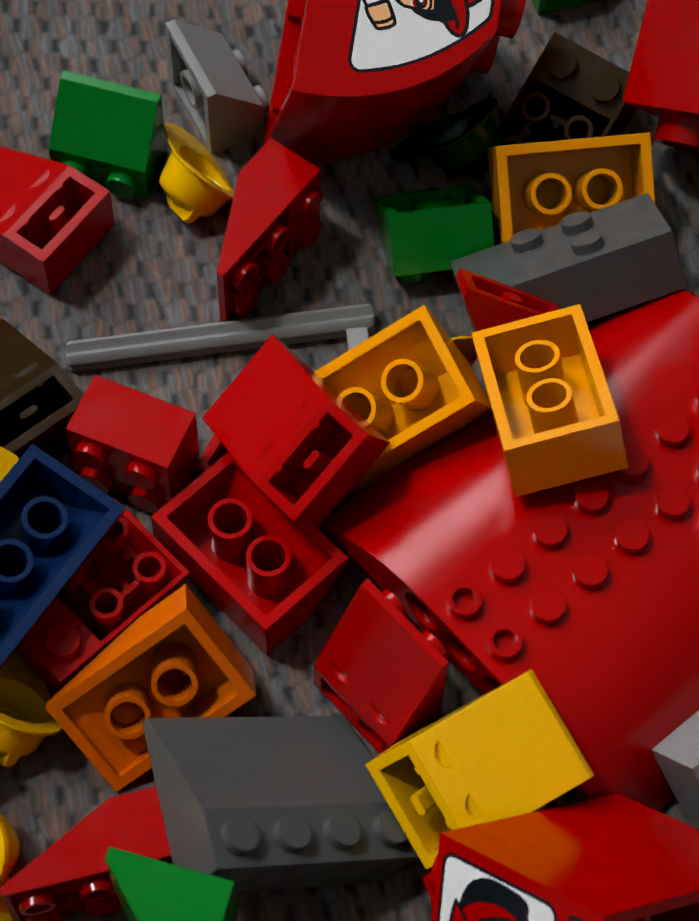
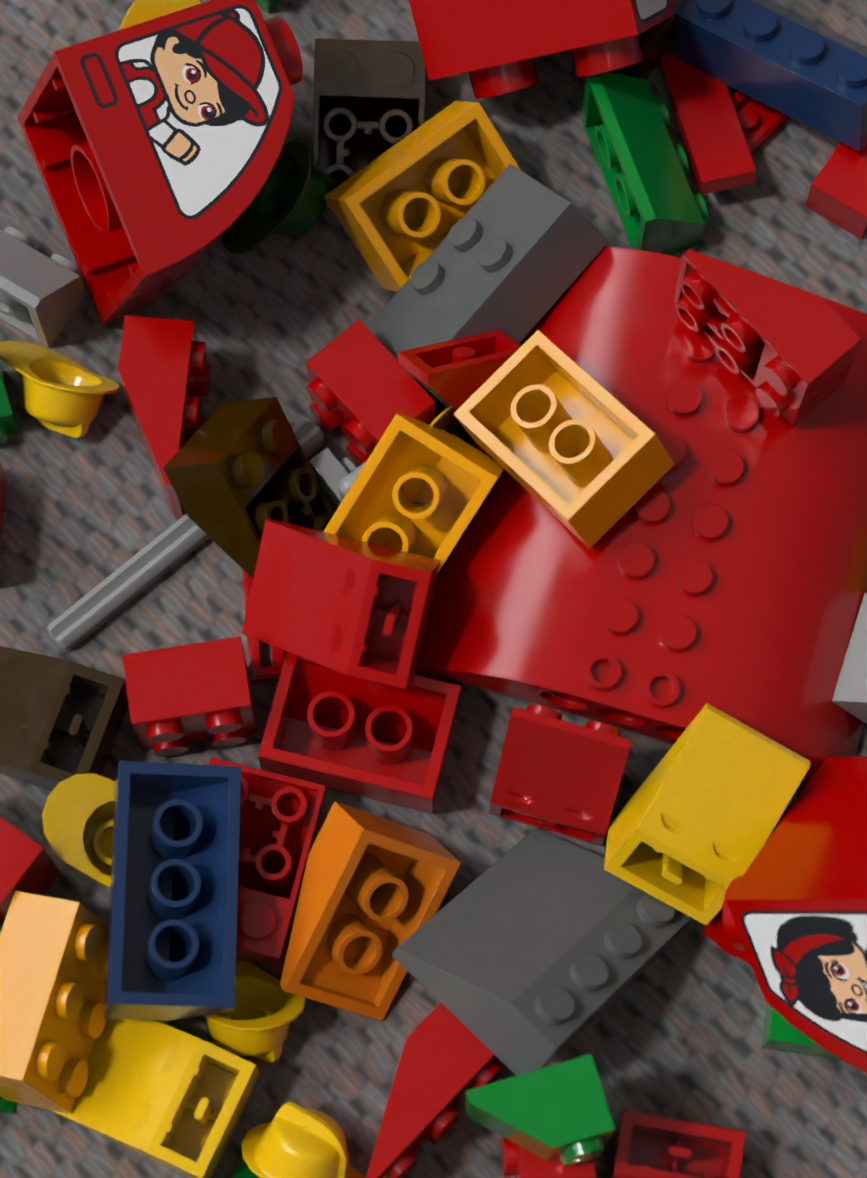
camera: 30 degrees left, 10 degrees up
(284, 294) = (243, 471): none -> dark brown slope
(418, 276) = (361, 389): none -> red brick
(432, 228) = (315, 298): green slope -> none

